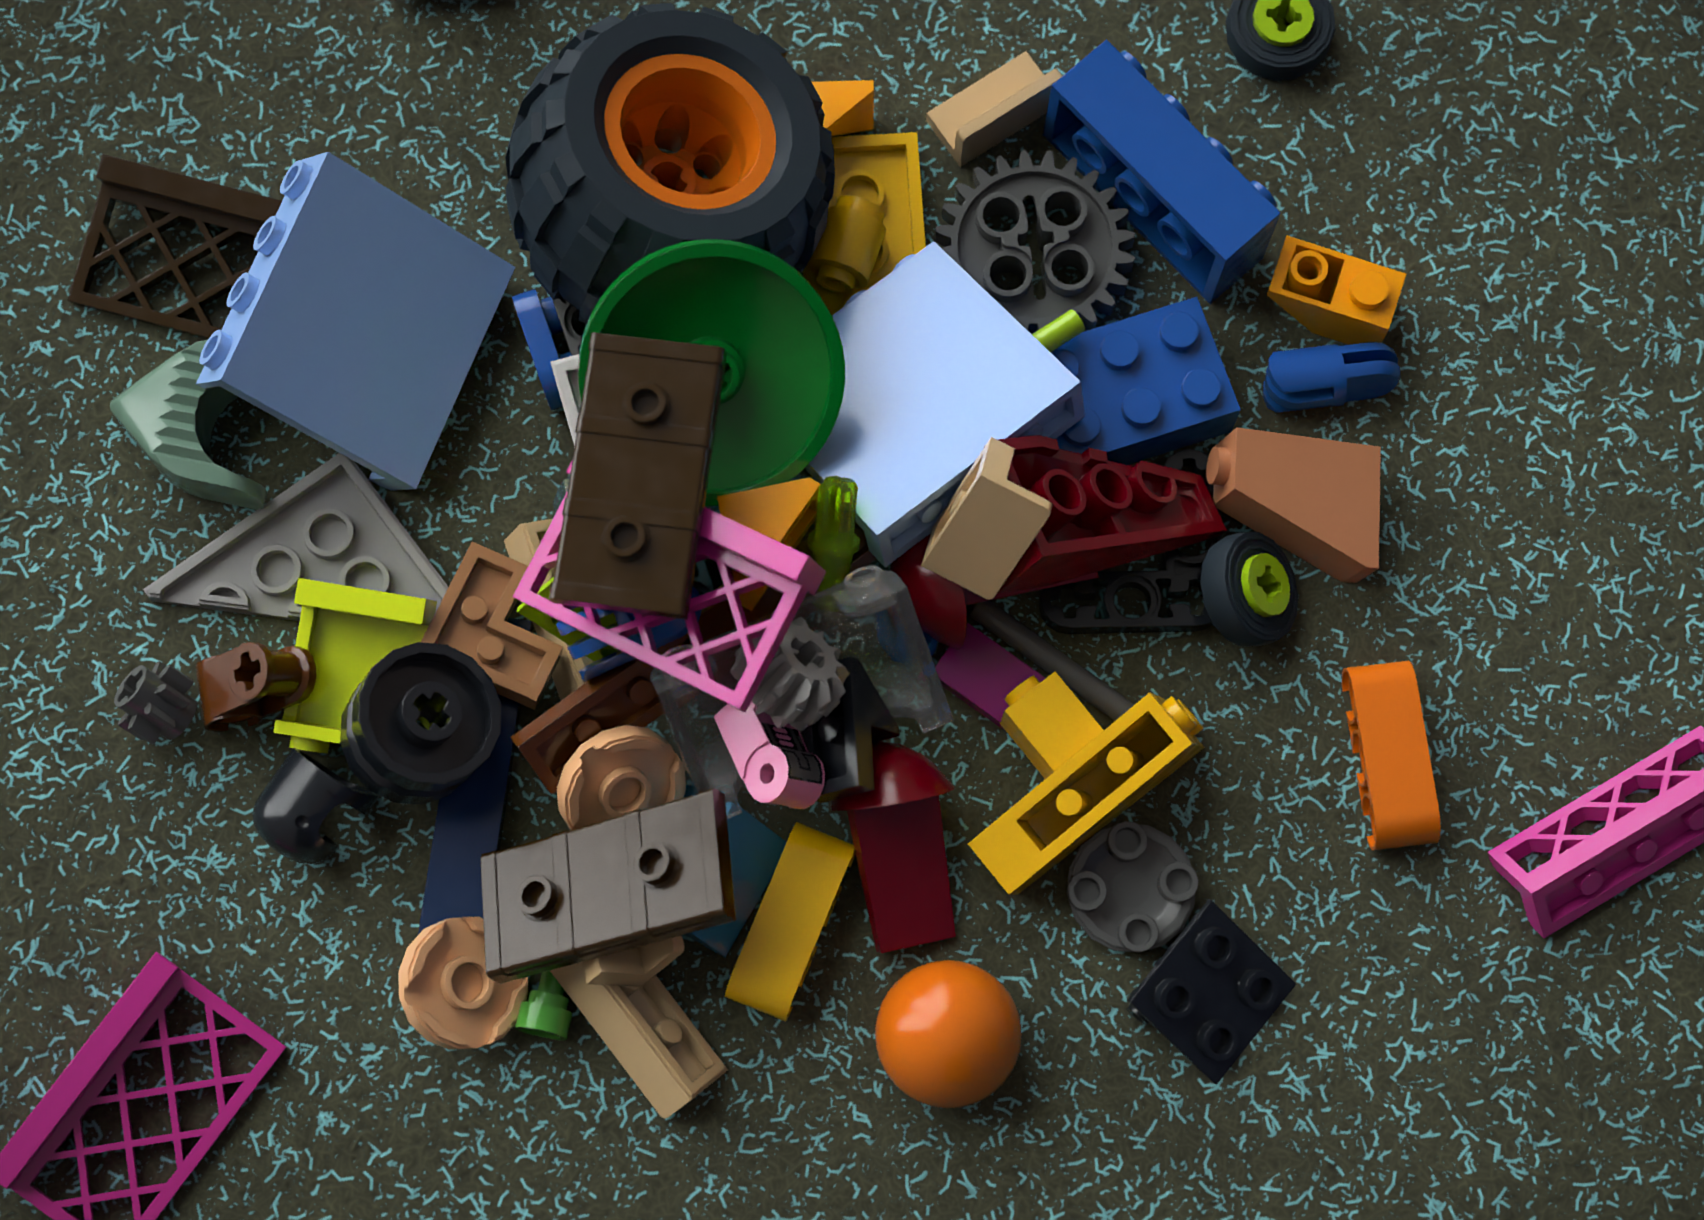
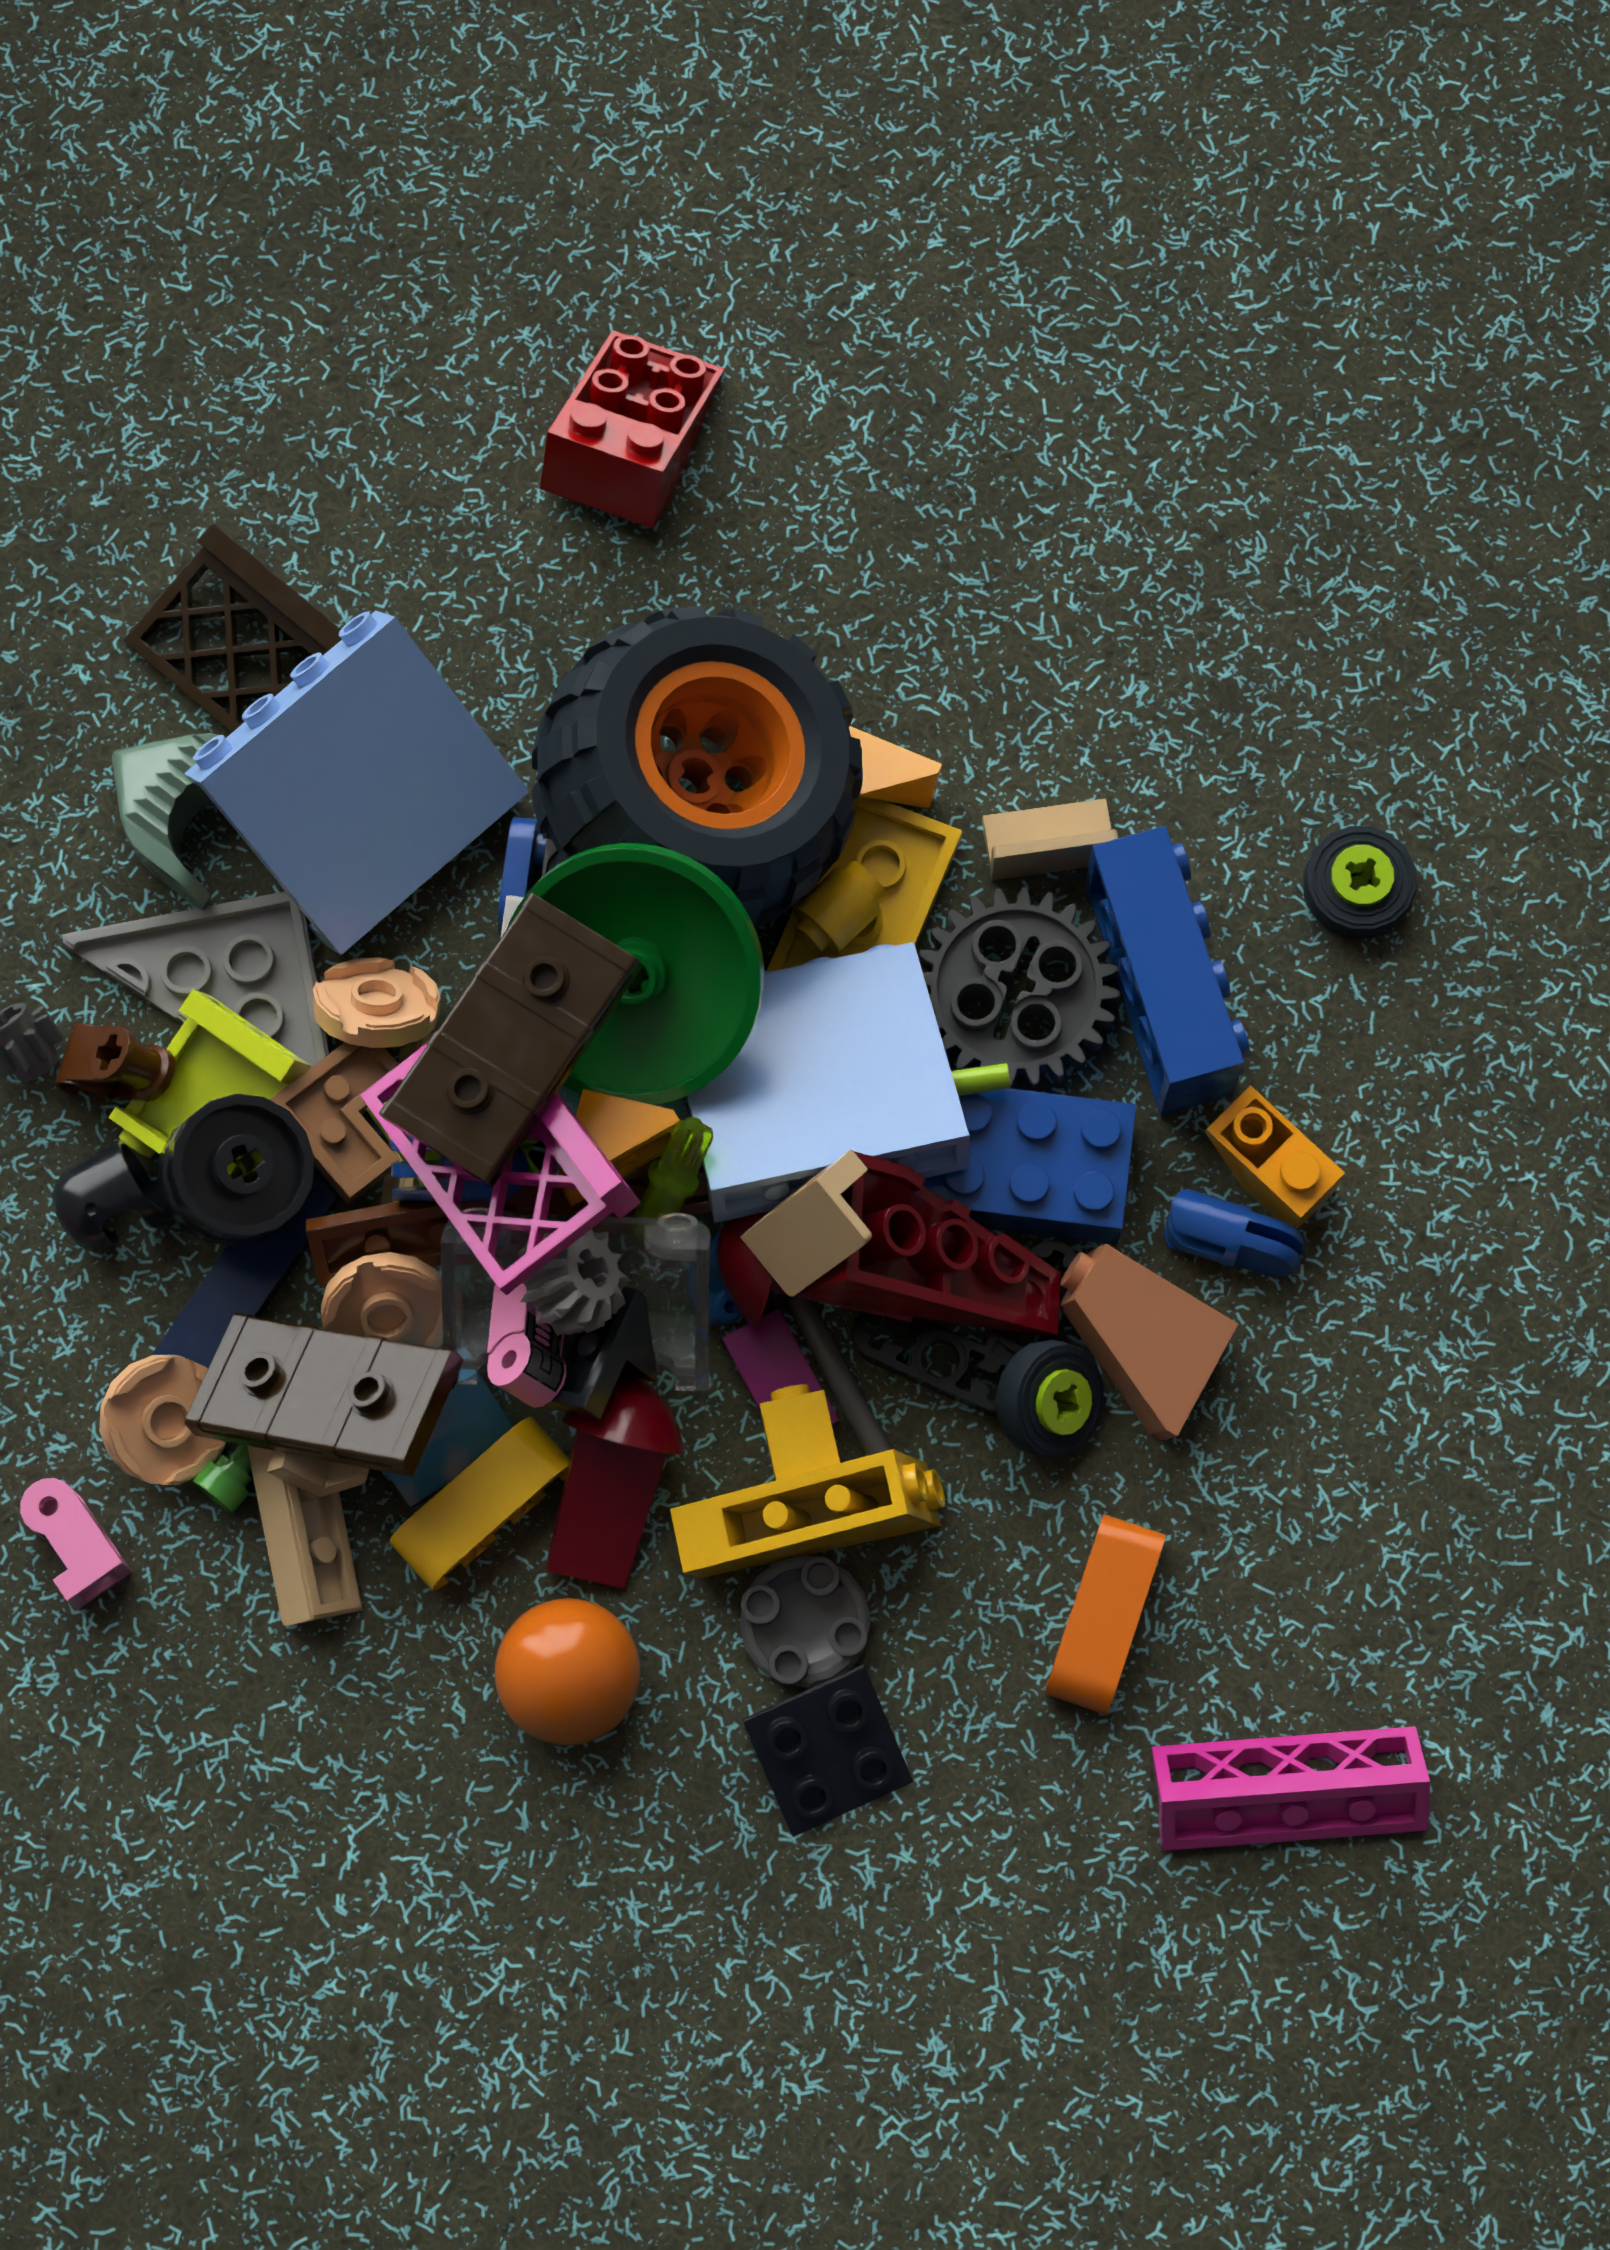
camera: 30 degrees right, 0 degrees up
(411, 1119) = (77, 1537): none -> bright pink leg
(469, 519) = (376, 1004): none -> light nougat tile

